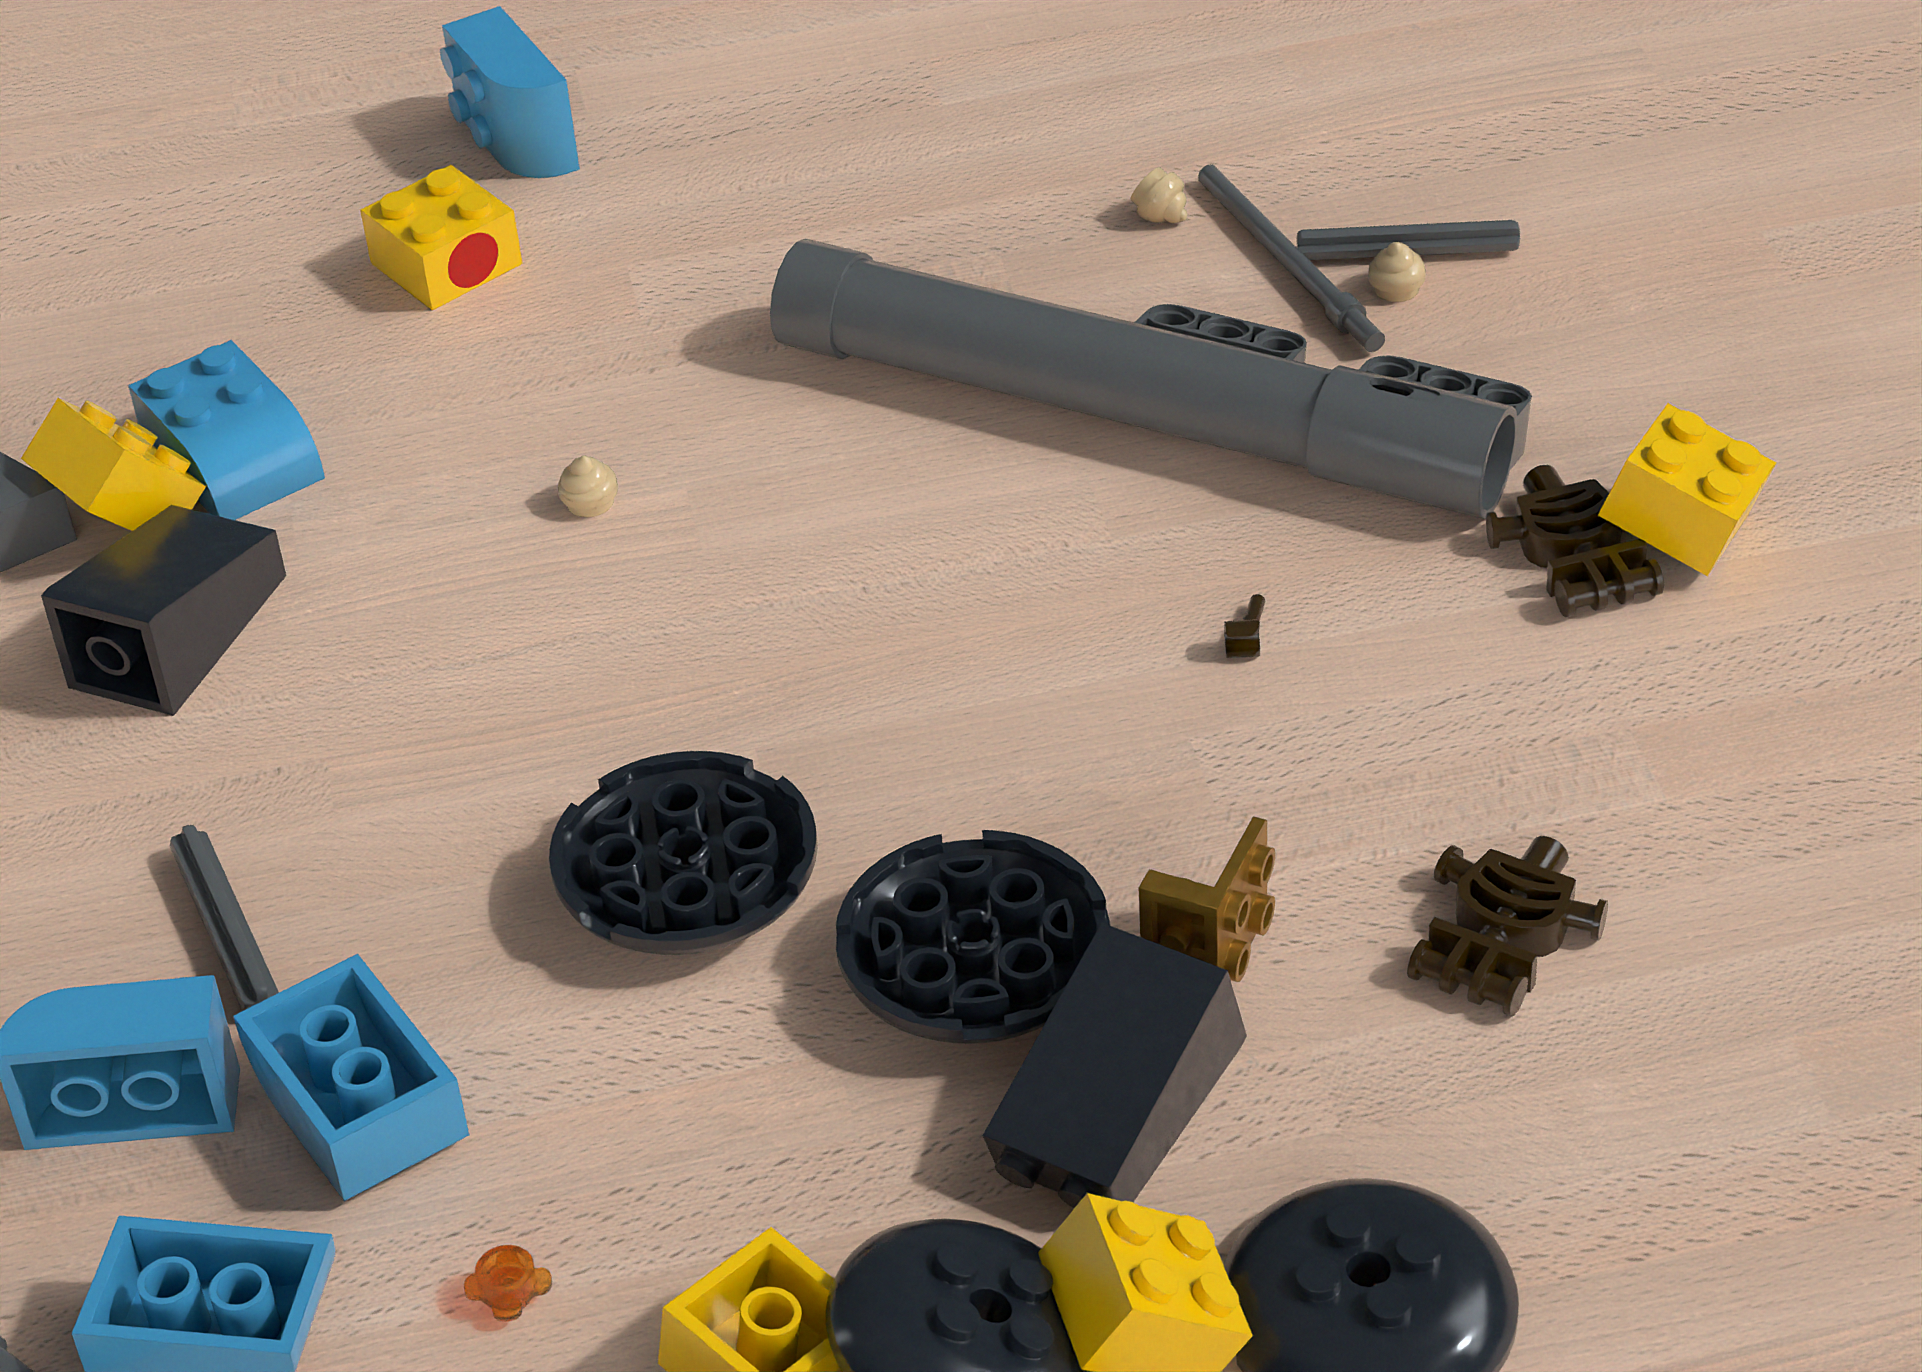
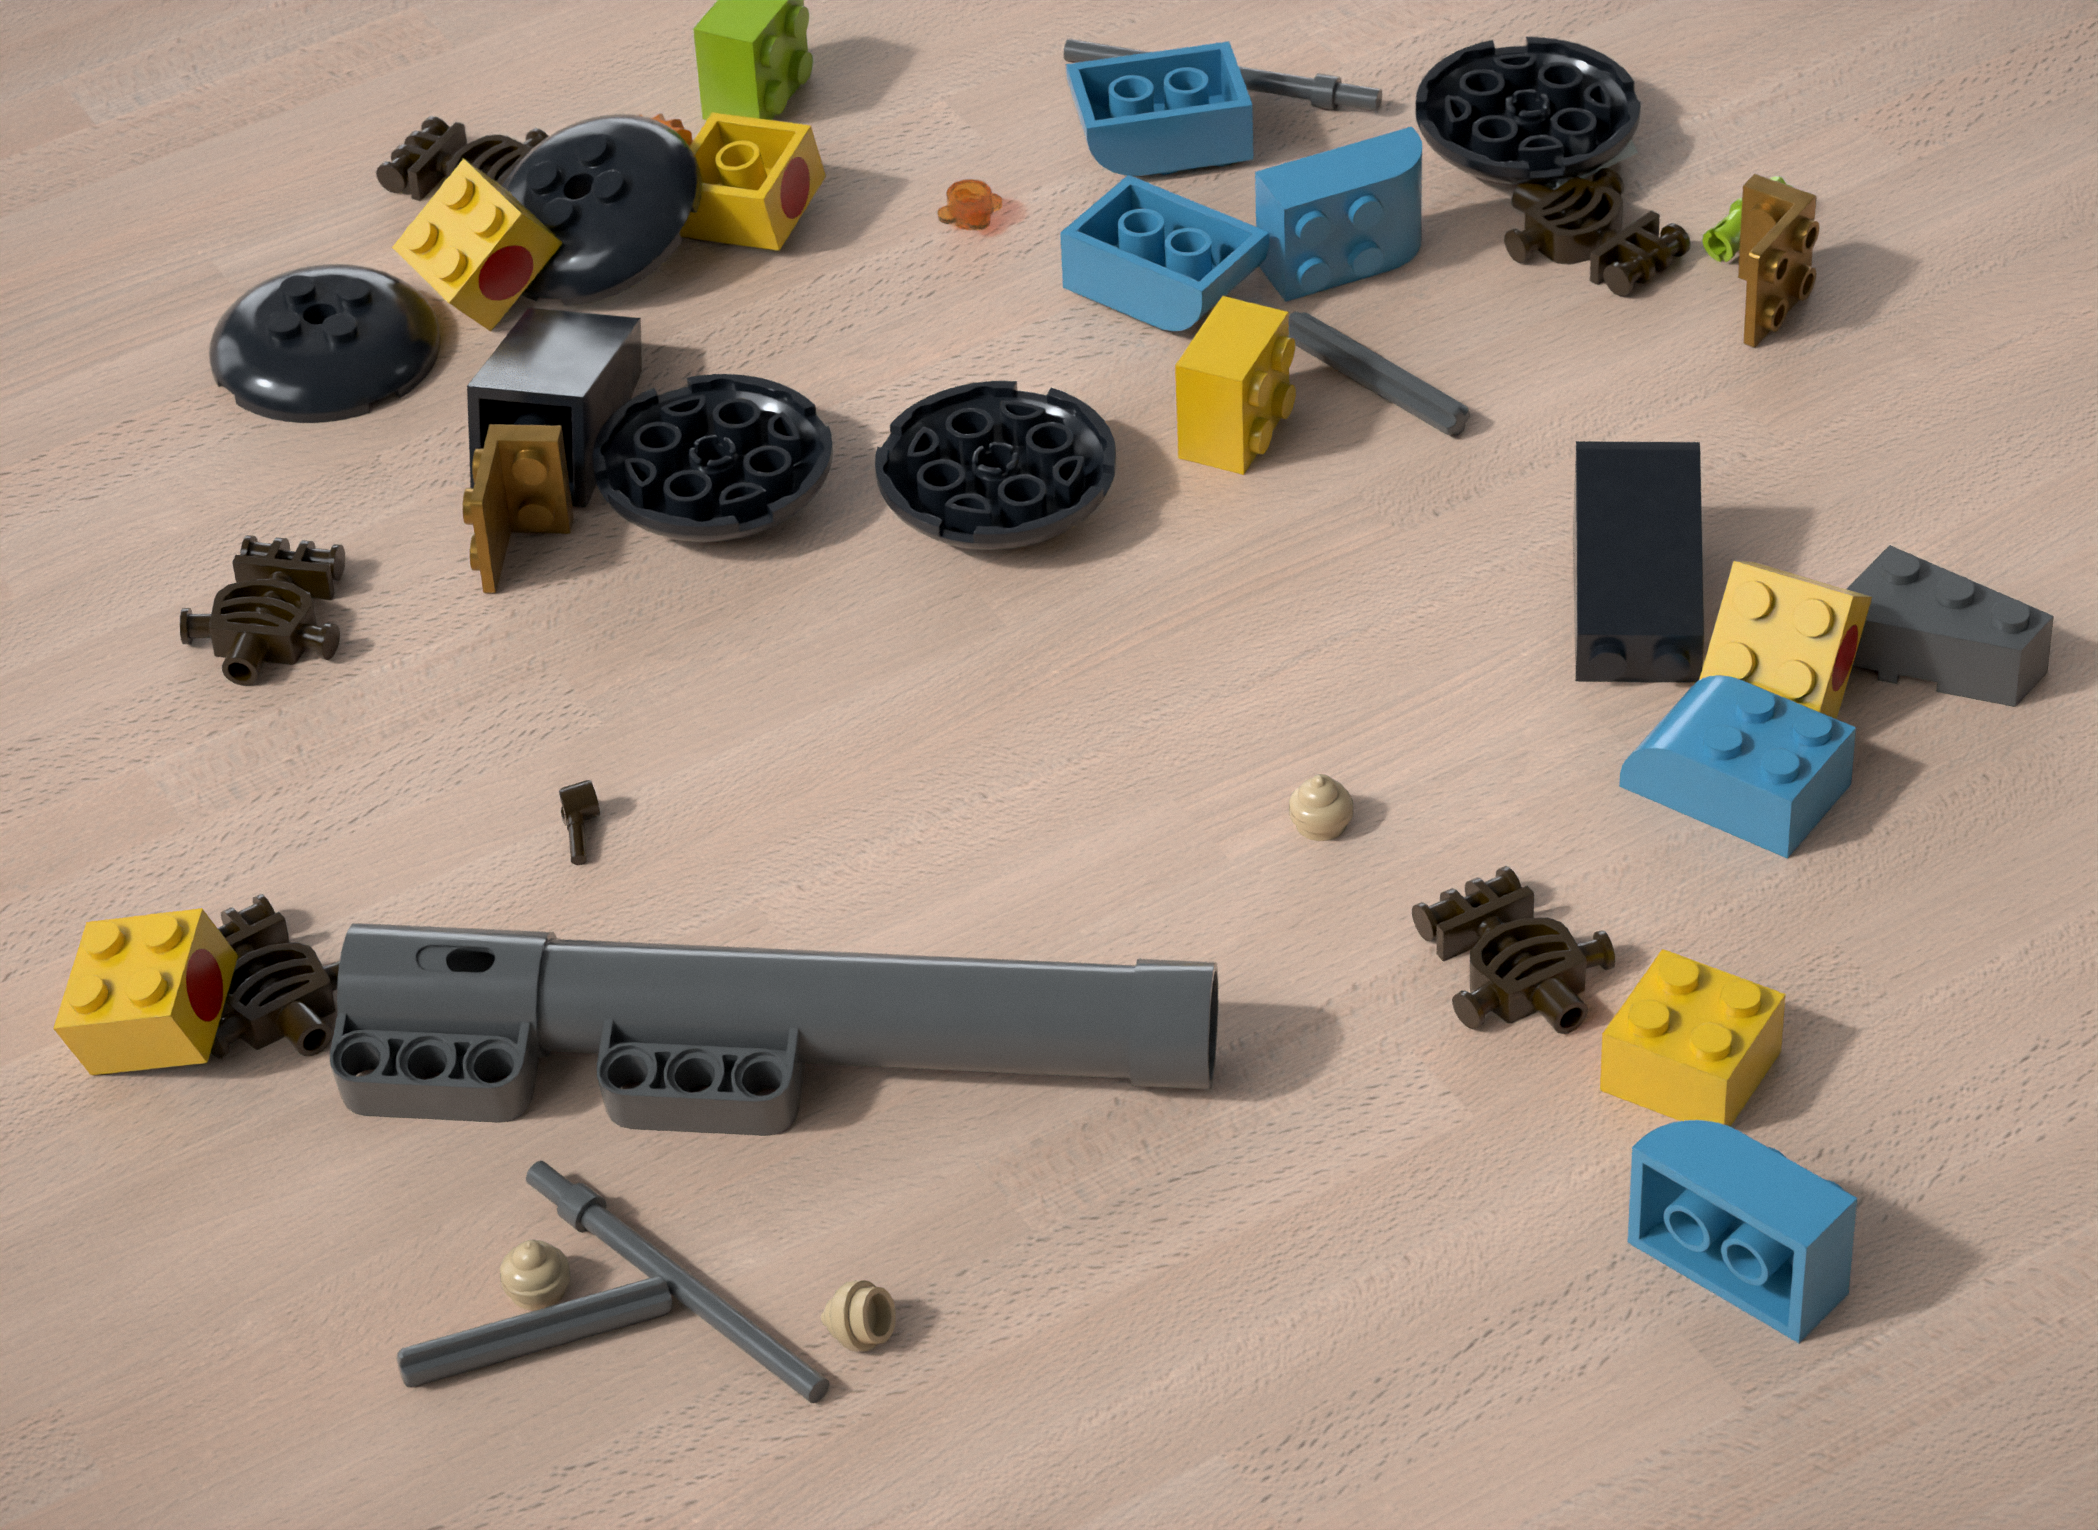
camera: 160 degrees right, 0 degrees up
(393, 867) = (1234, 385): none -> yellow brick
(518, 344) = (1515, 959): none -> dark brown piece

